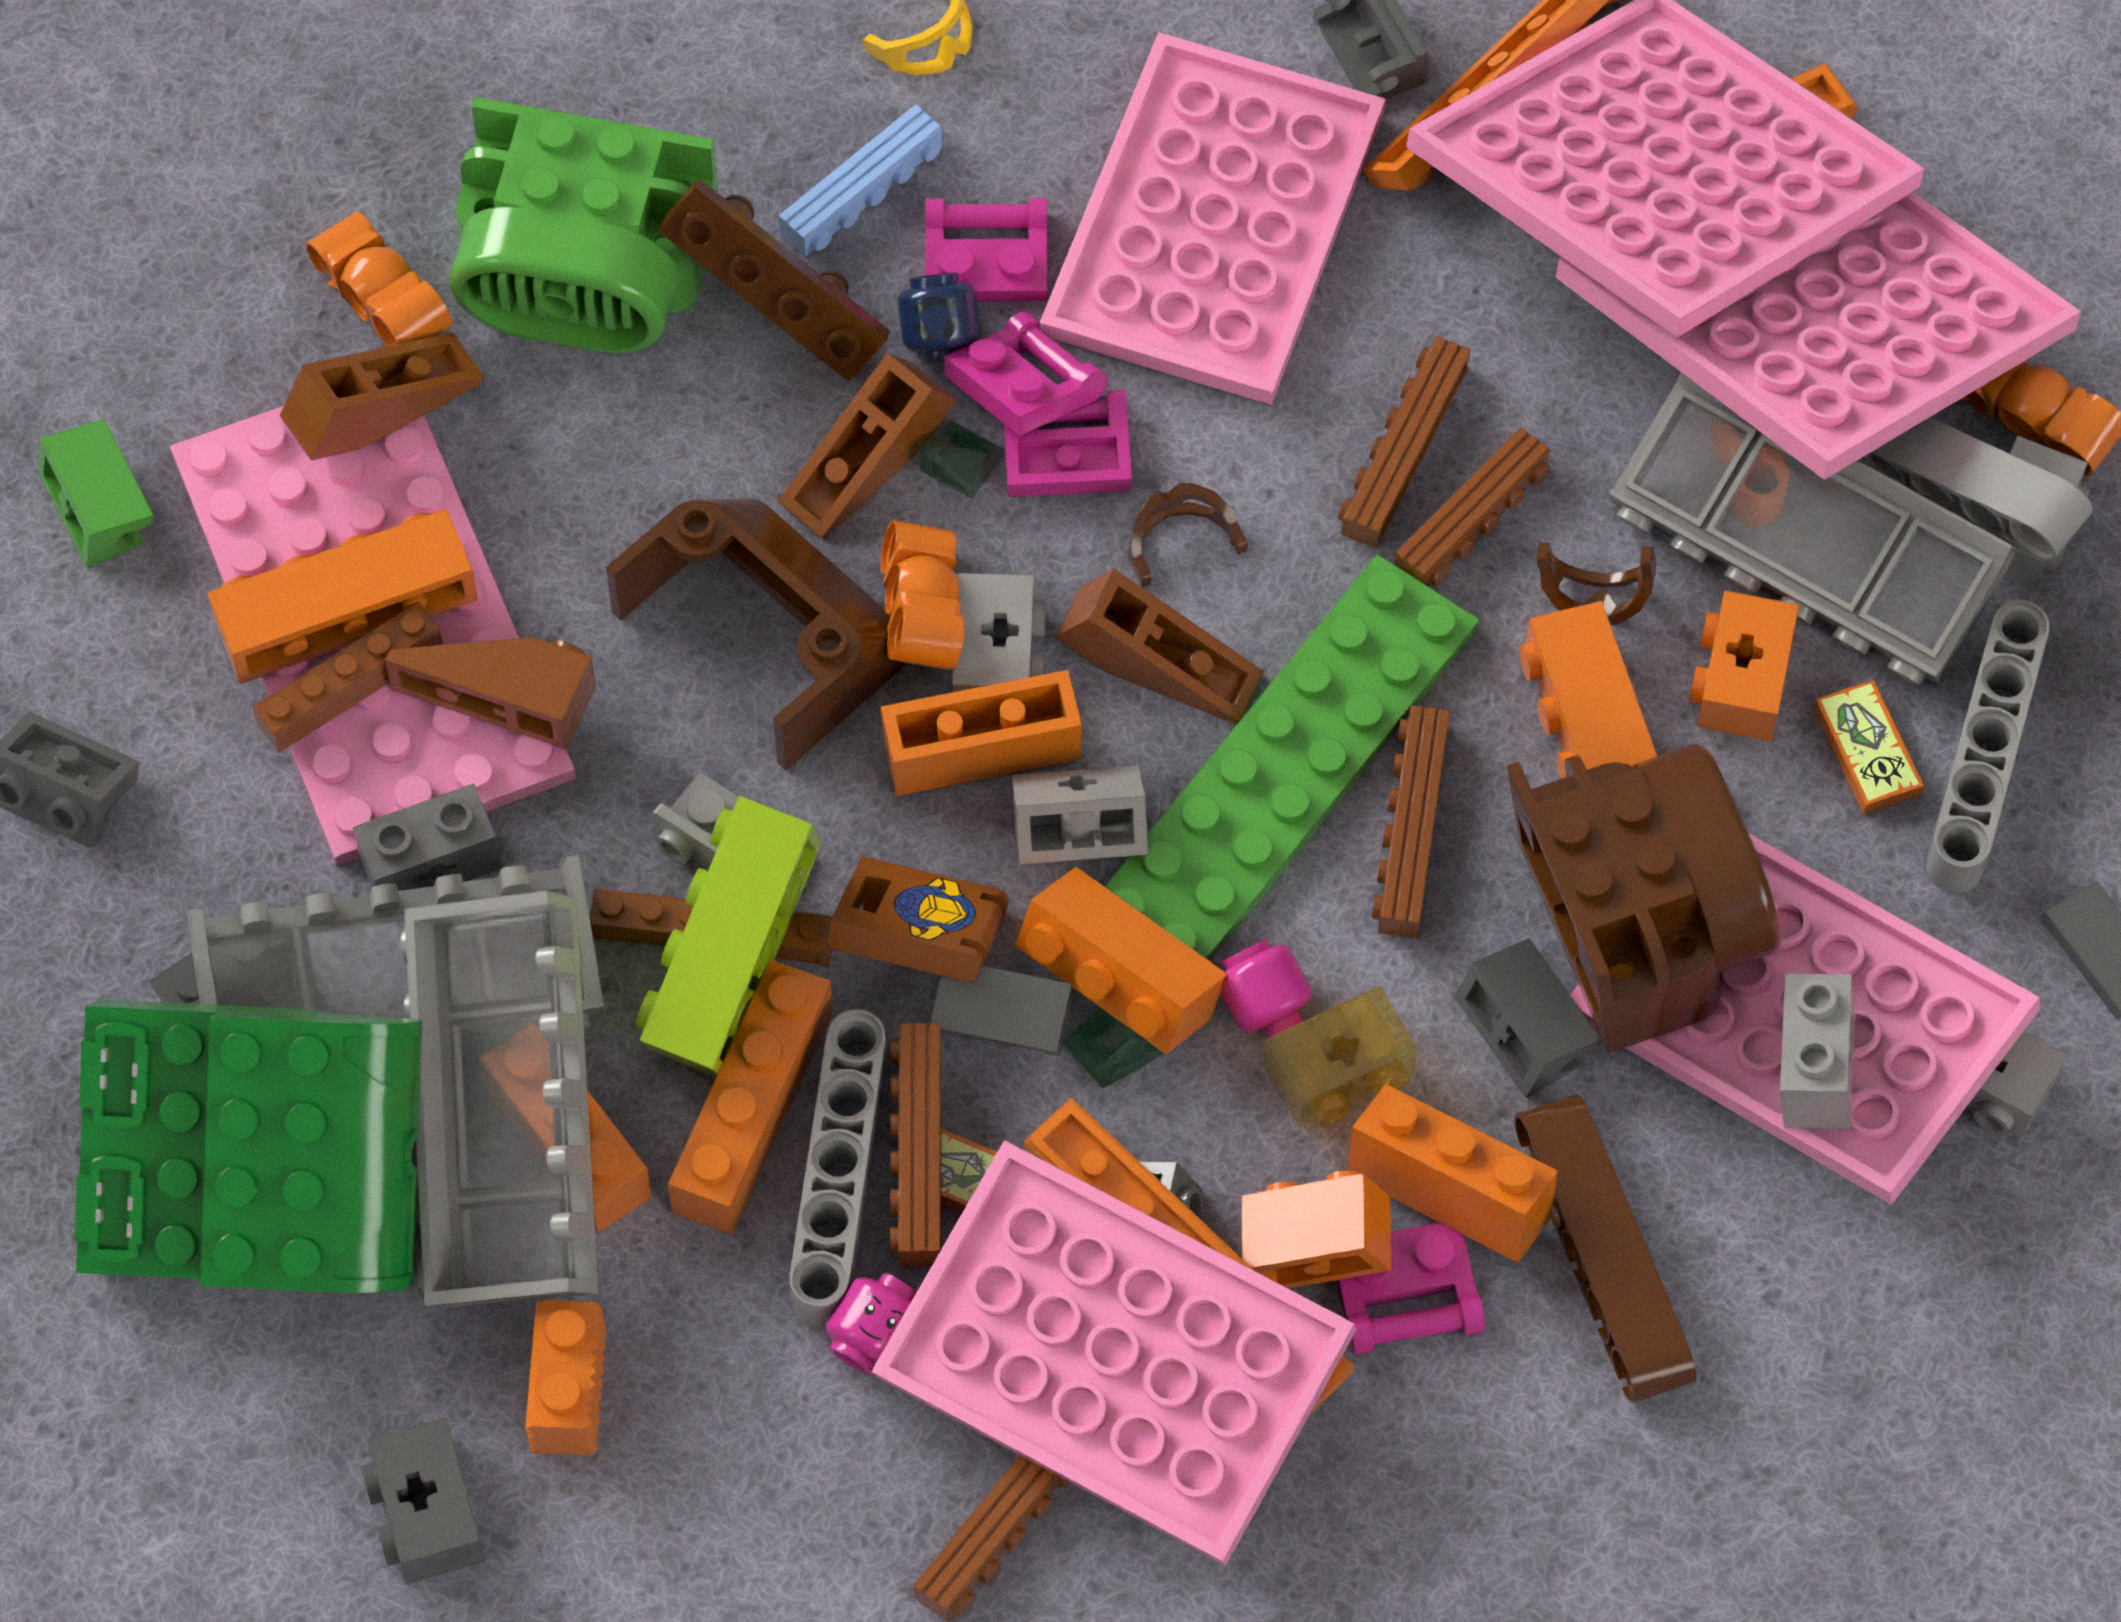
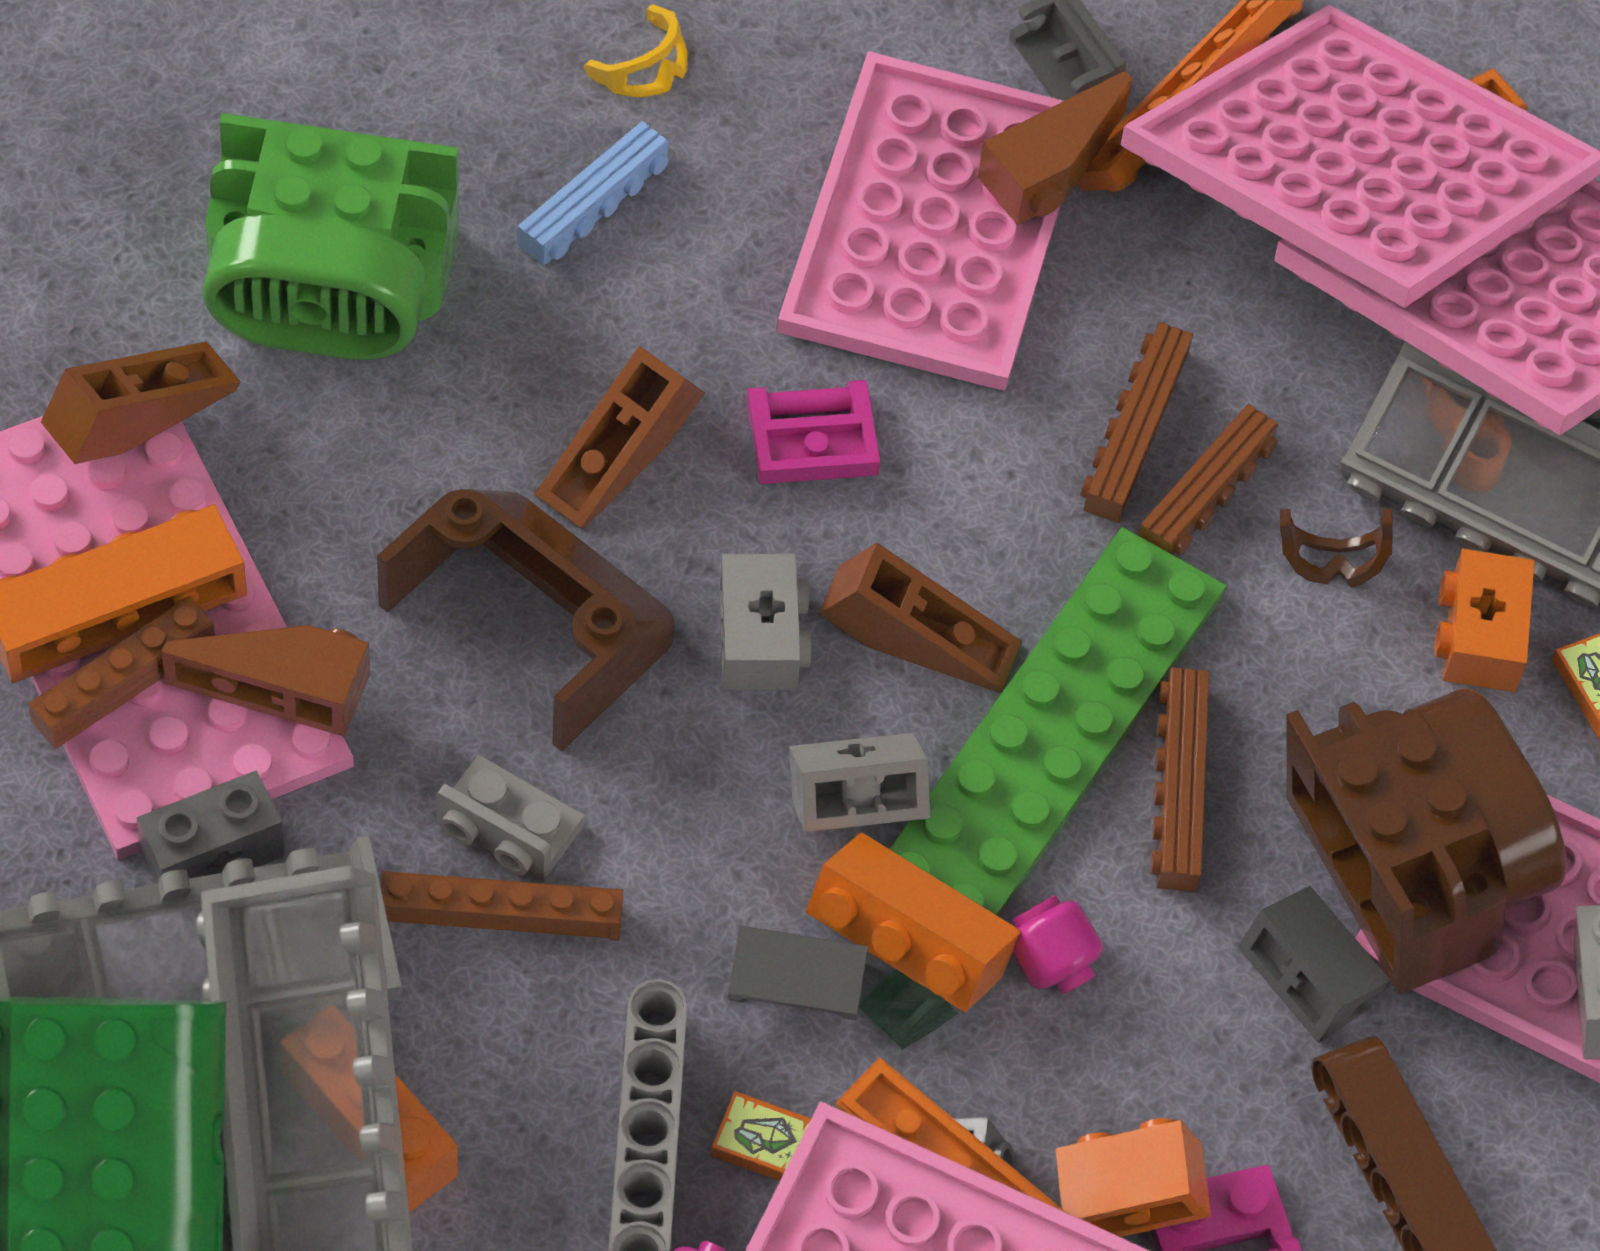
camera: 10 degrees left, 5 degrees down
(378, 282) = (129, 296): orange piece -> none
(731, 935) = (528, 912): lime brick -> none
(750, 1097) = (553, 1072): orange brick -> none
(773, 279) = (521, 280): reddish brown plate -> none
(917, 919) = (708, 889): dark orange container -> none
(919, 1153) = (728, 1112): dark orange piece -> none
(922, 595) = (687, 576): orange piece -> none
(938, 315) = (680, 315): dark blue head -> none
(959, 458) = (709, 449): clear green slope -> none
(981, 733) = (756, 706): orange brick -> none
(992, 266) = (719, 270): dark pink plate -> none
(1015, 389) = (760, 381): dark pink plate -> none
(1171, 504) = (919, 487): reddish brown helmet -> none
(1332, 154) = (1044, 157): none -> dark orange slope
(1355, 1031) = (1151, 982): clear yellow brick -> none
(1453, 1172) = (1262, 1117): orange brick -> none
(1584, 688) = (1335, 645): orange brick -> none

